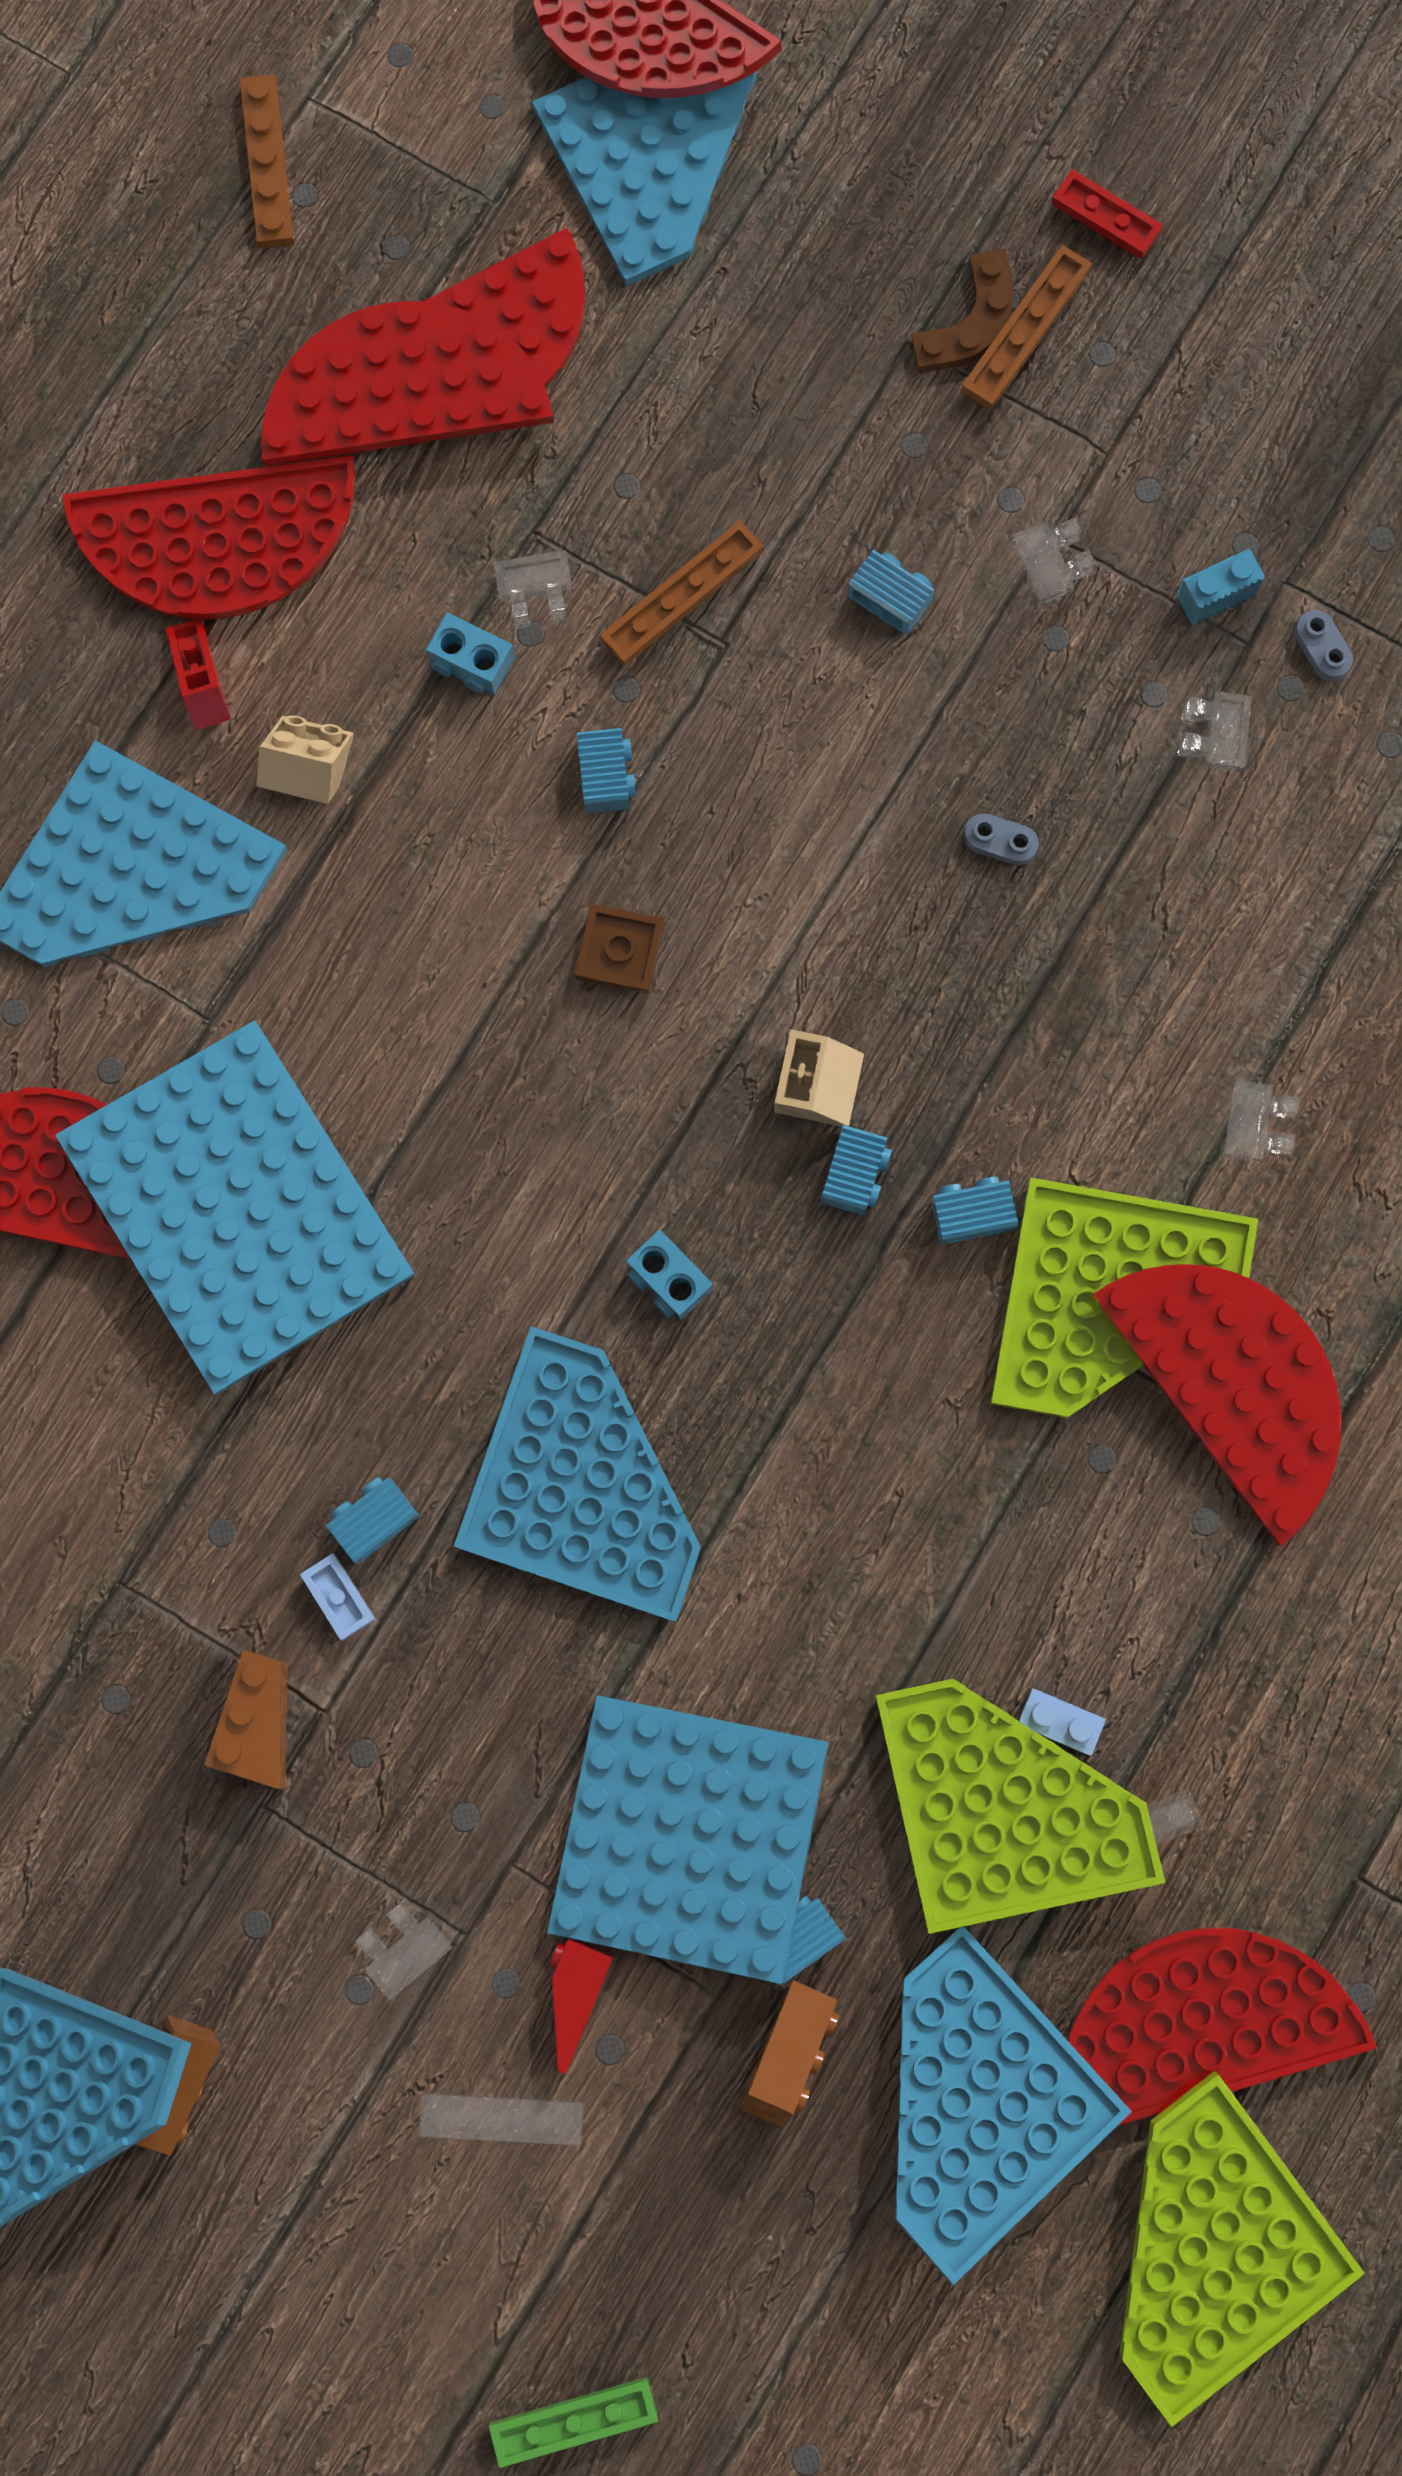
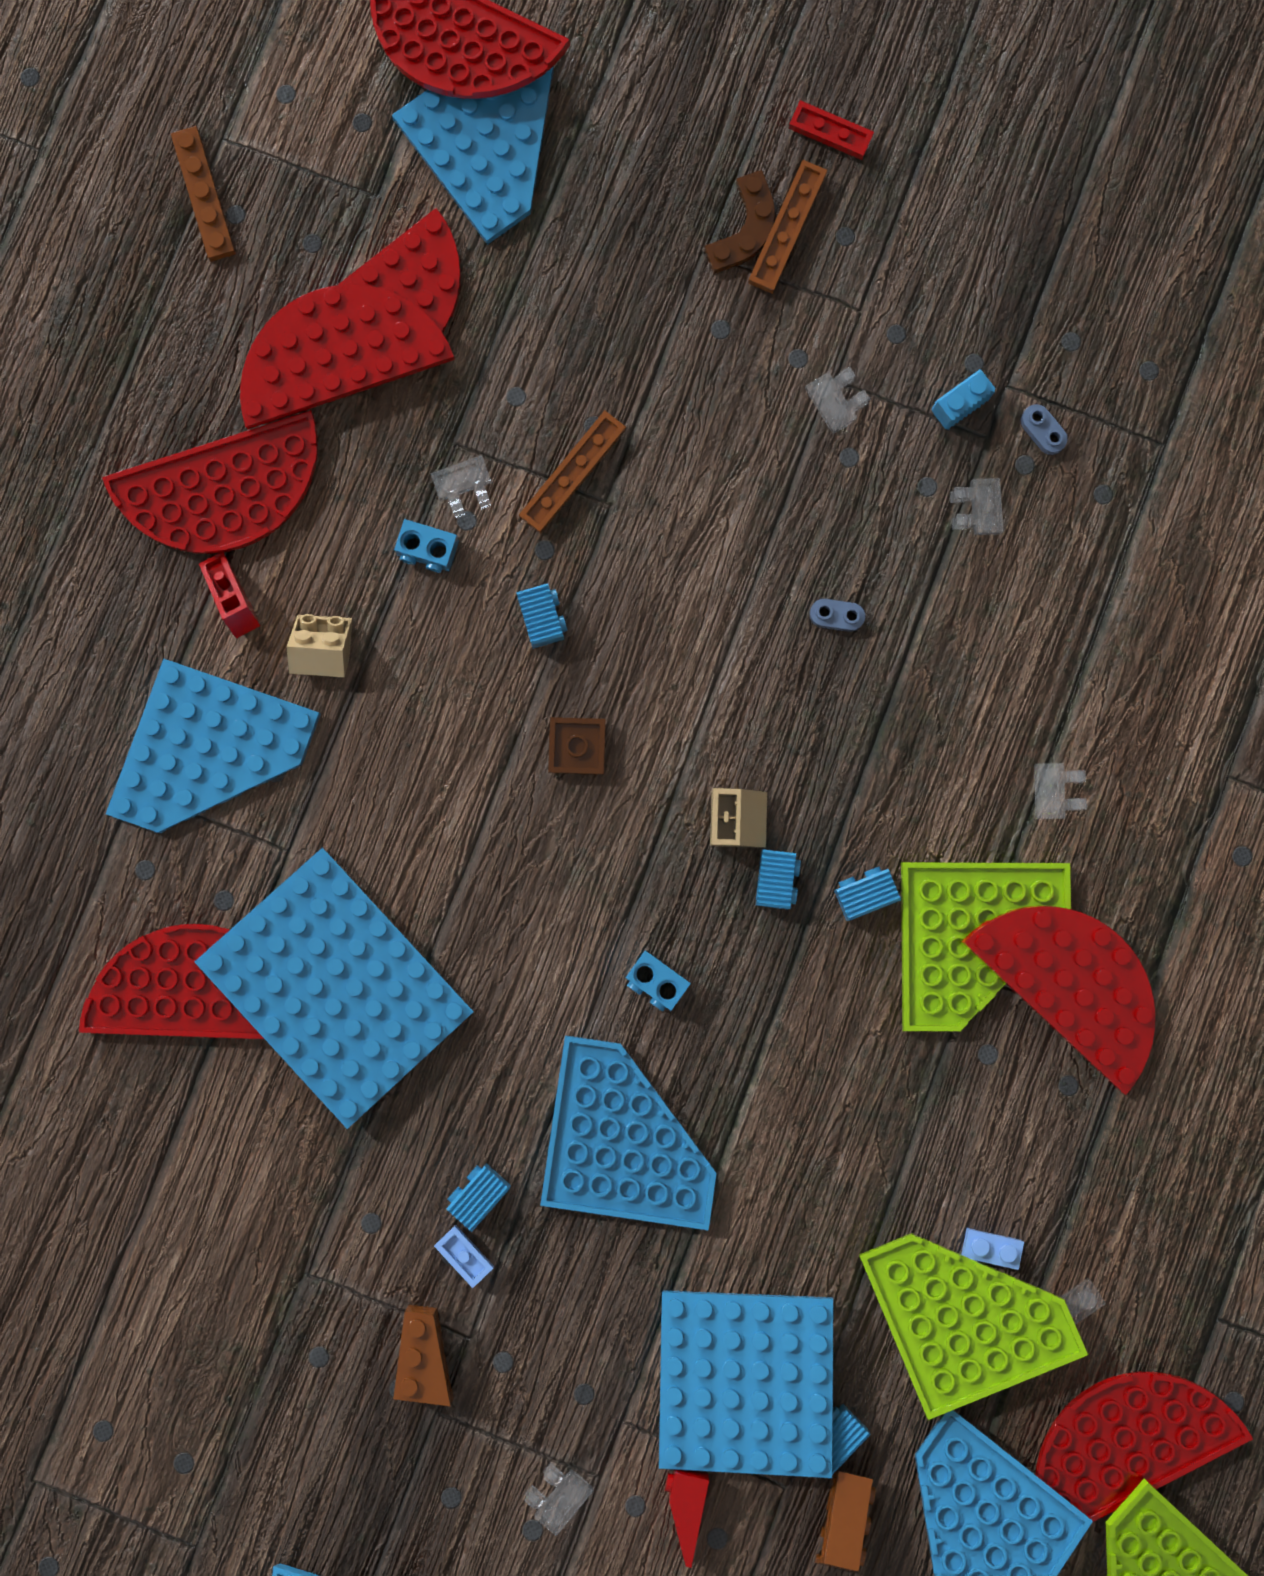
camera: 15 degrees left, 5 degrees up
(891, 591) = (724, 444): dark azure brick -> none

